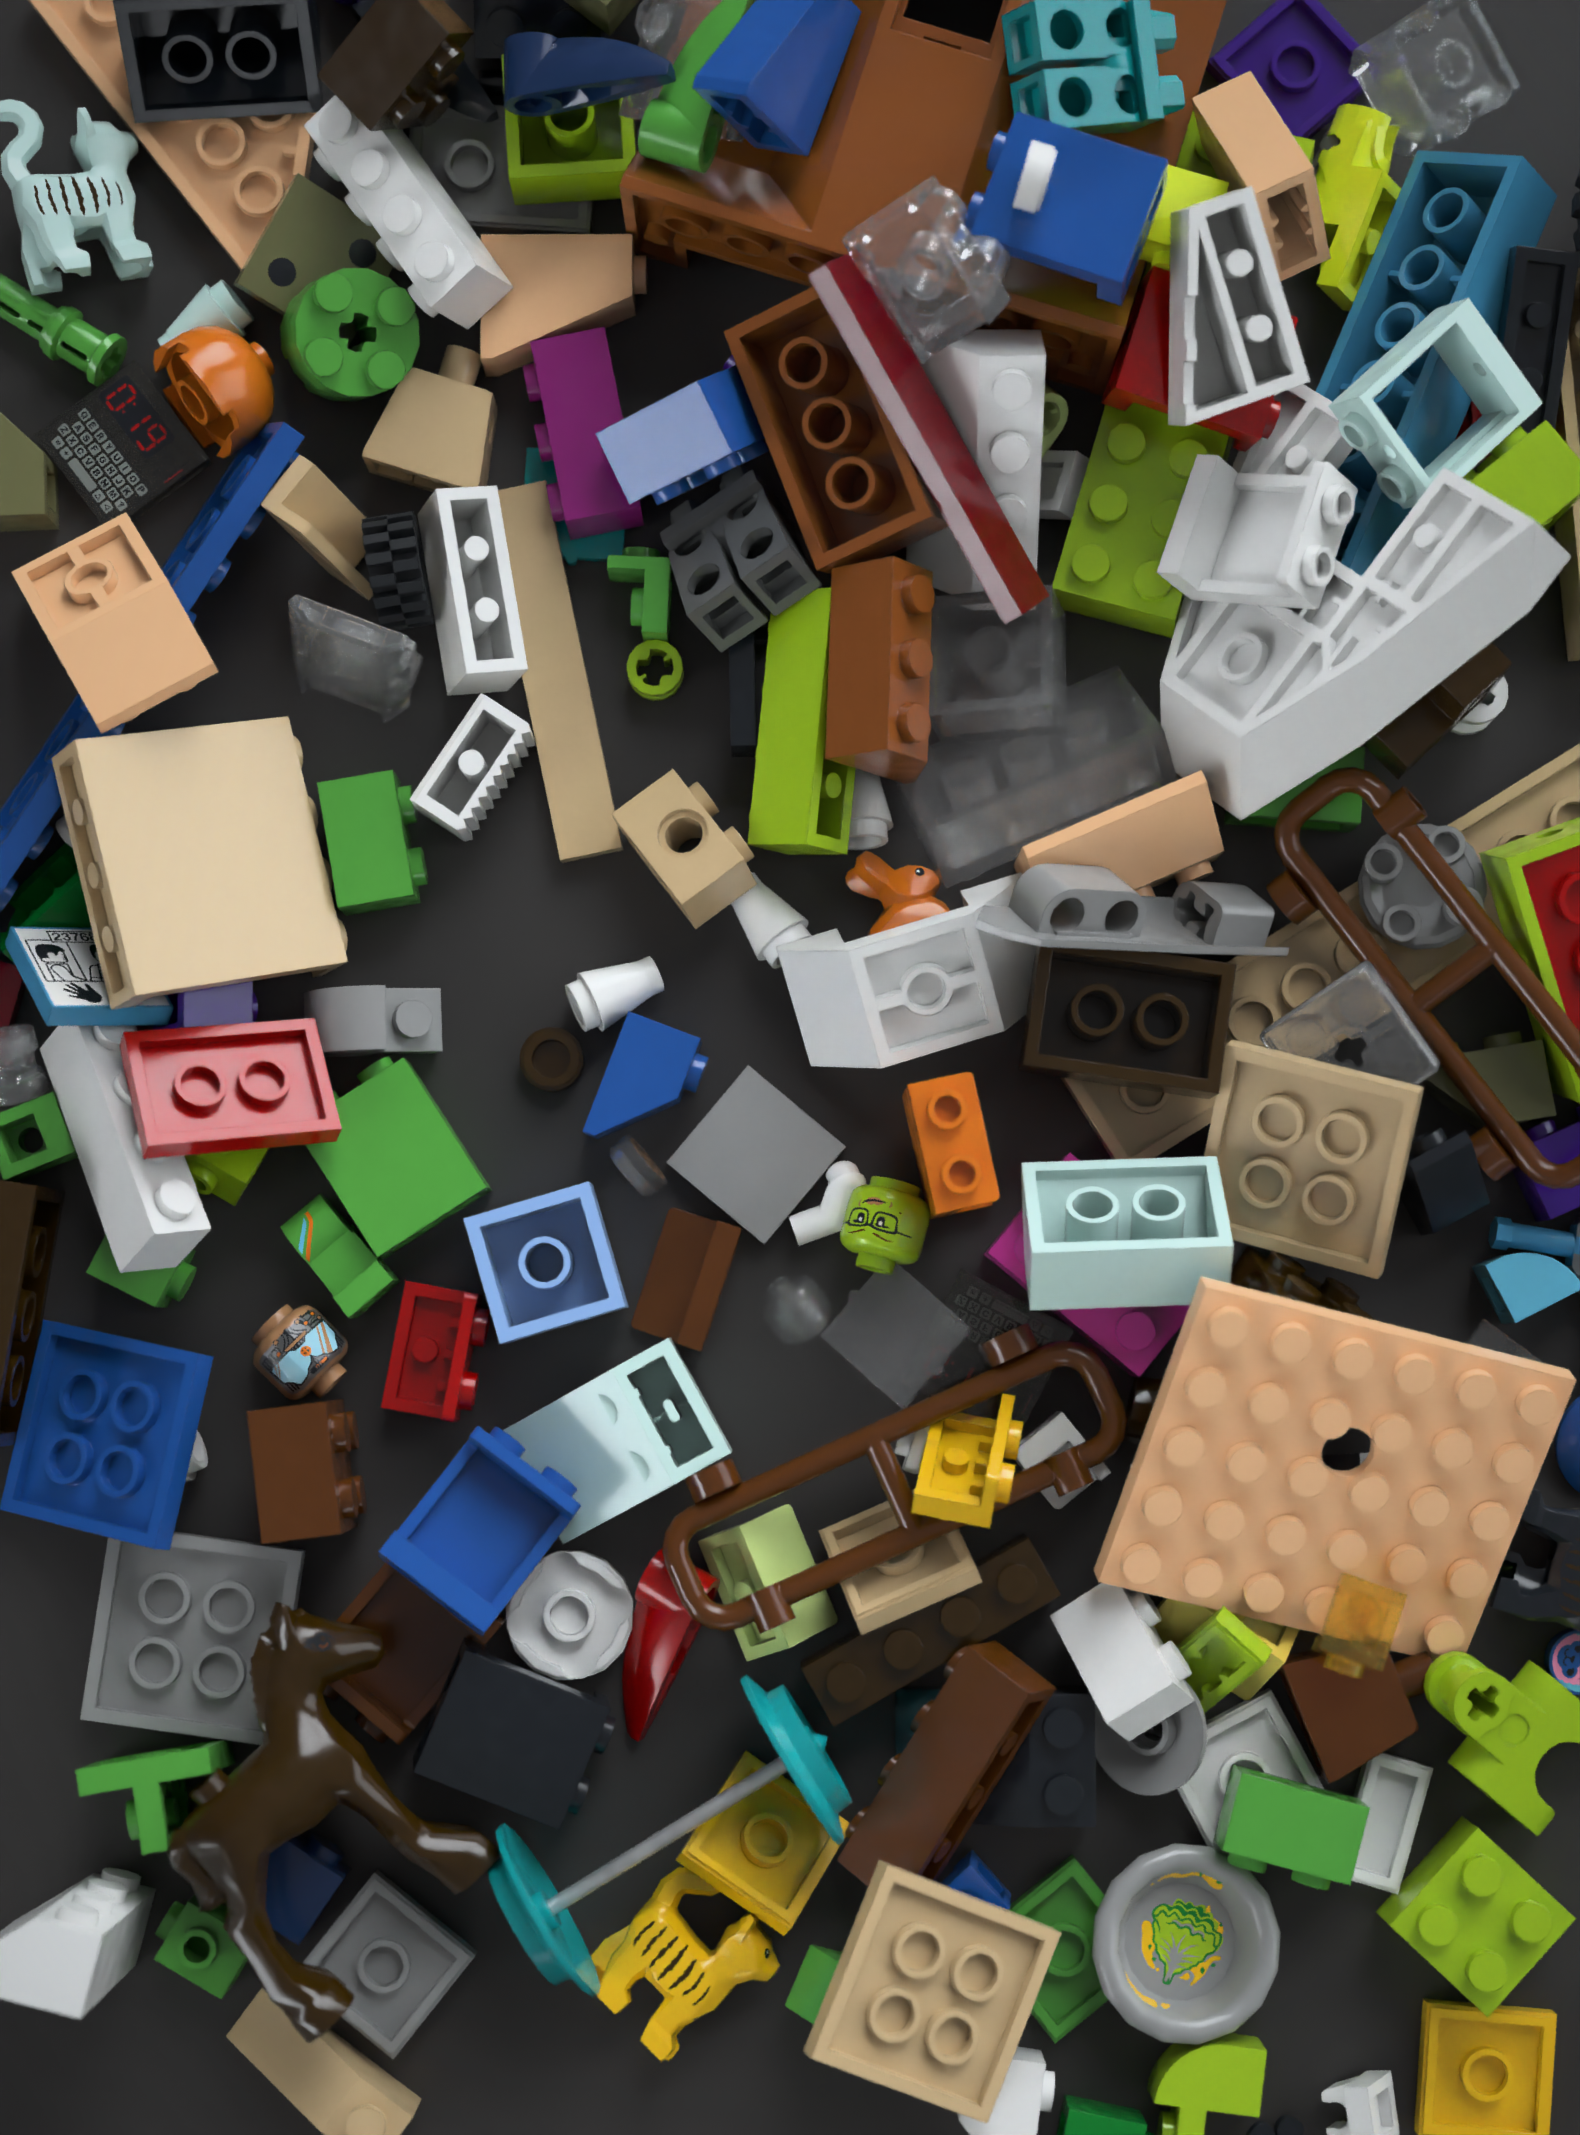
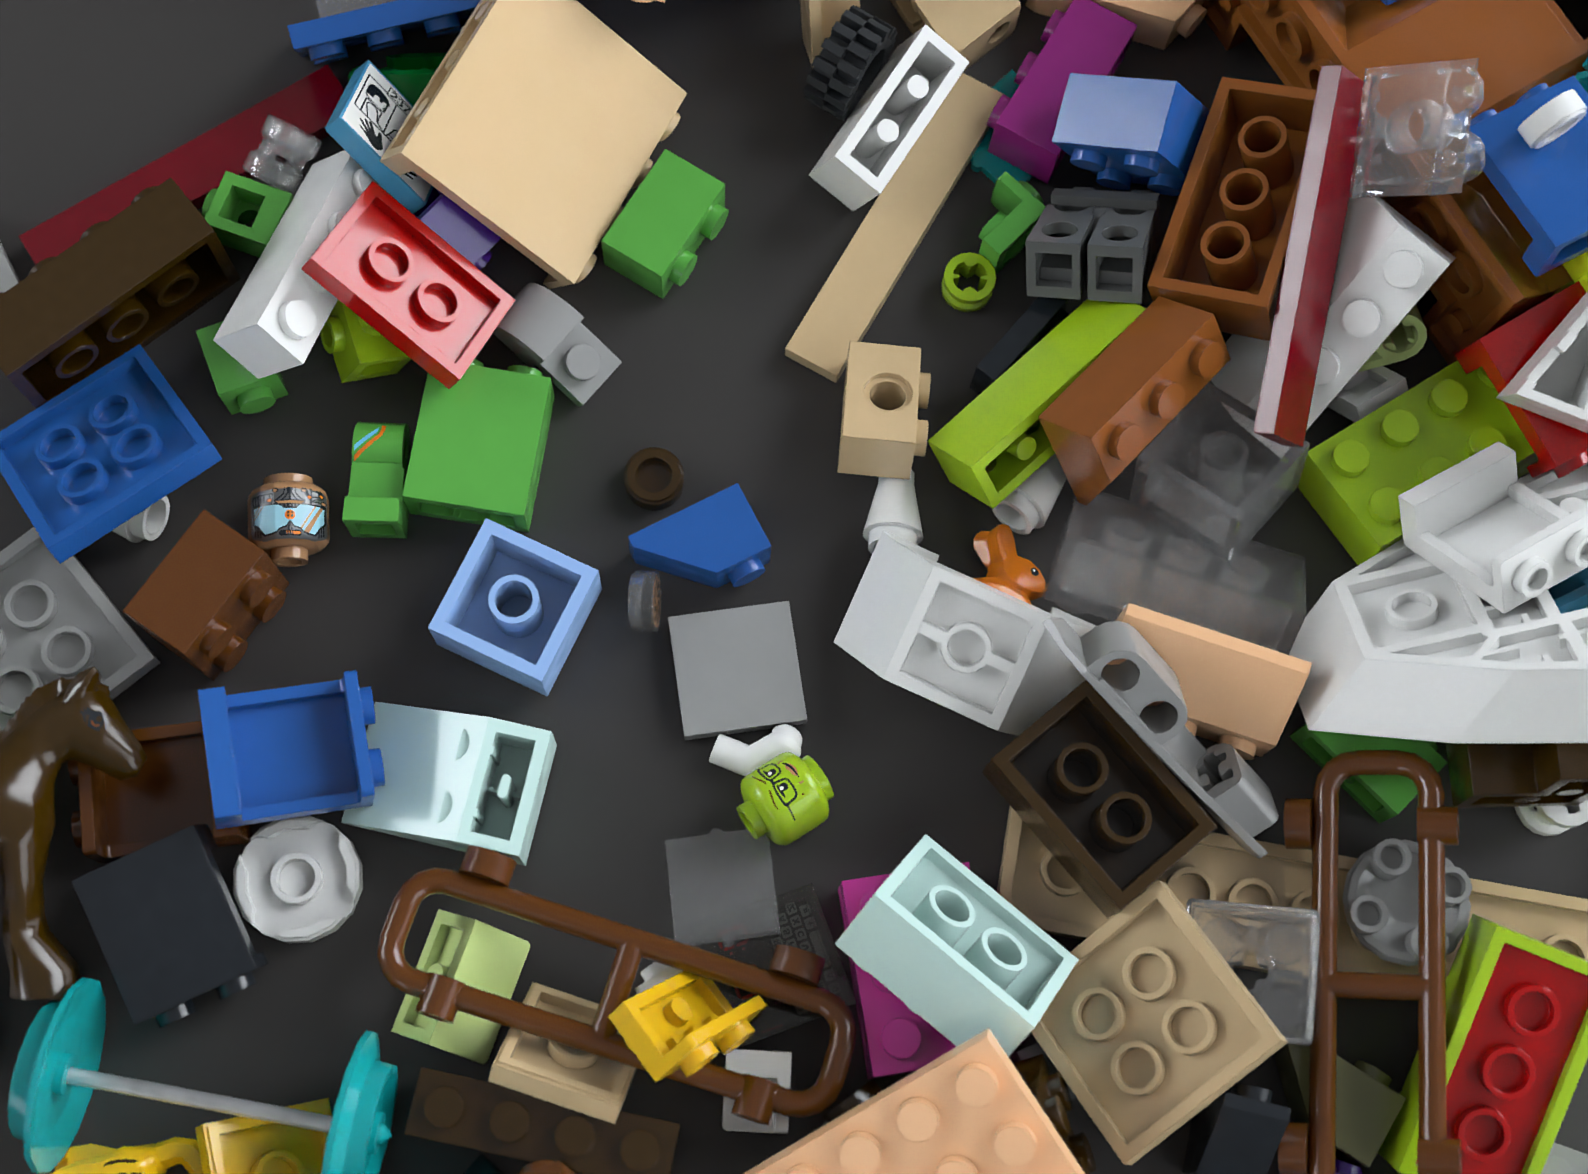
camera: 35 degrees right, 10 degrees down
(352, 657) = (768, 92): clear slope -> none
(434, 1352) = (380, 603): red bracket -> none
(473, 767) = (782, 232): white brick -> none
(608, 993) = (732, 461): white cone -> none
(657, 1643) = (339, 958): red piece -> none
(686, 1278) = (608, 713): reddish brown panel -> none
(796, 1309) = (666, 807): clear piece -> none
(950, 1145) = (883, 776): orange panel -> none

